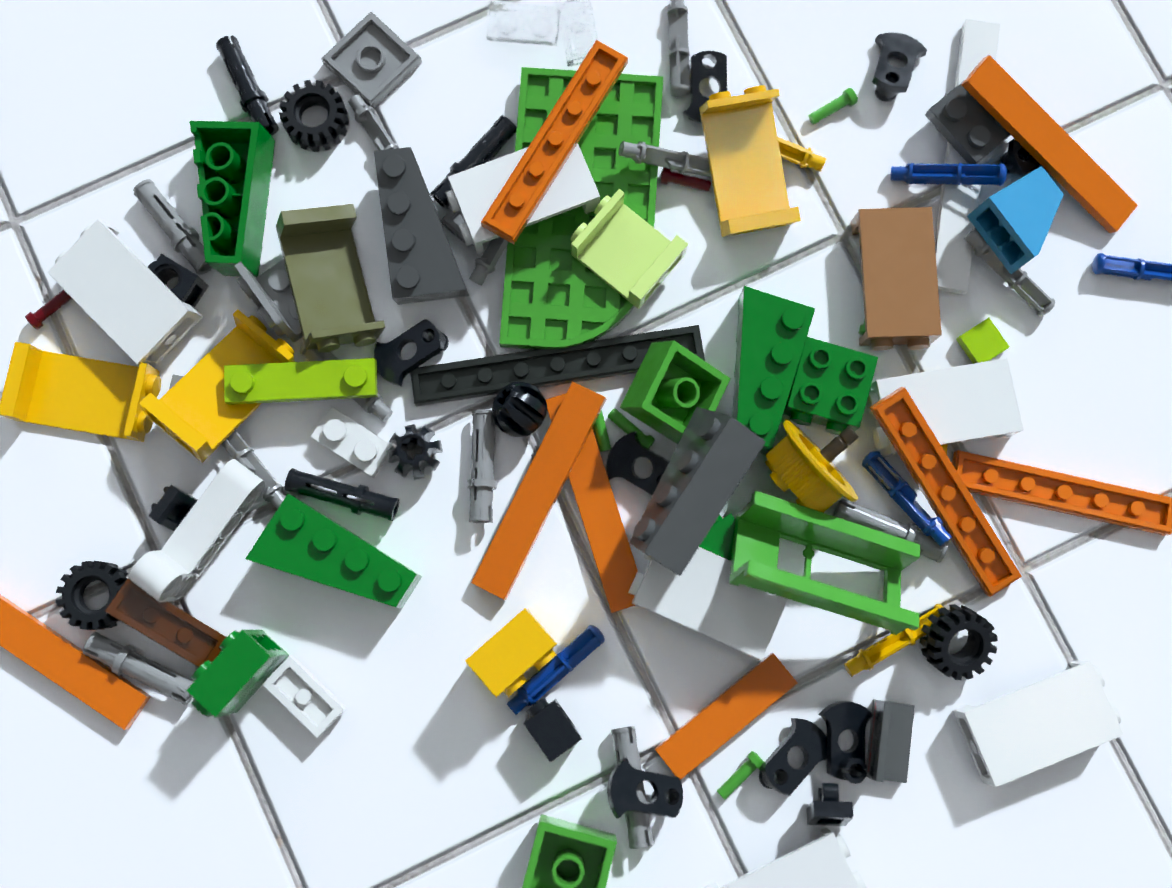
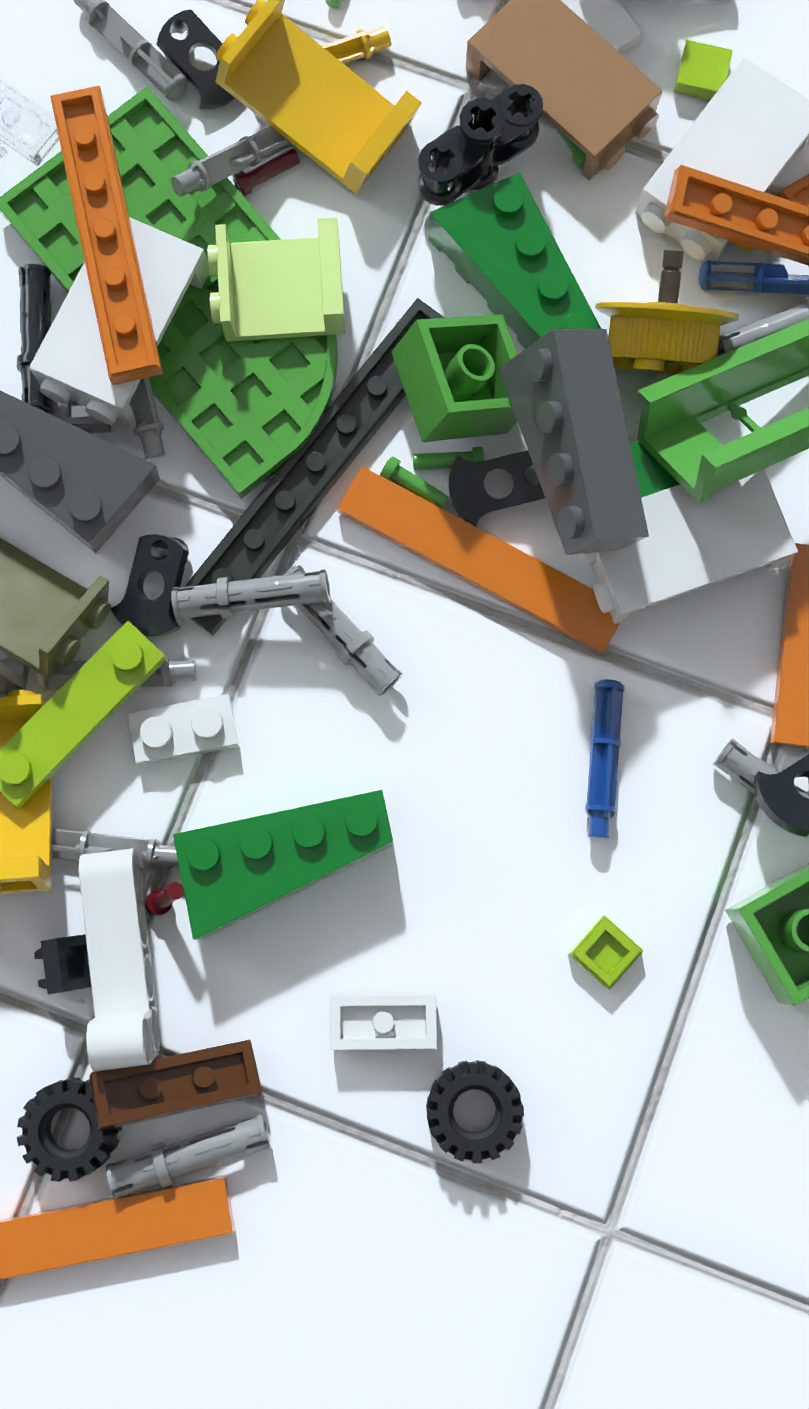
camera: 40 degrees left, 0 degrees up
(235, 673) = (296, 1062): green brick -> none
(254, 521) = (161, 900): none -> dark red piece
(282, 795) = (494, 1138): none -> black tyre
(301, 483) = (169, 817): black pin -> none
(409, 442) = (242, 681): black piece -> none
(440, 396) = (230, 596): none -> light grey pin
(456, 774) = (606, 952): none -> lime tile
(511, 653) = (552, 774): yellow brick -> none
(519, 409) = (323, 536): black piece -> none
(539, 490) = (419, 599): orange tile -> none
(551, 728) = (657, 815): black brick -> none
(817, 274) = (479, 144): none -> black axle
(830, 386) = (607, 236): green brick -> none

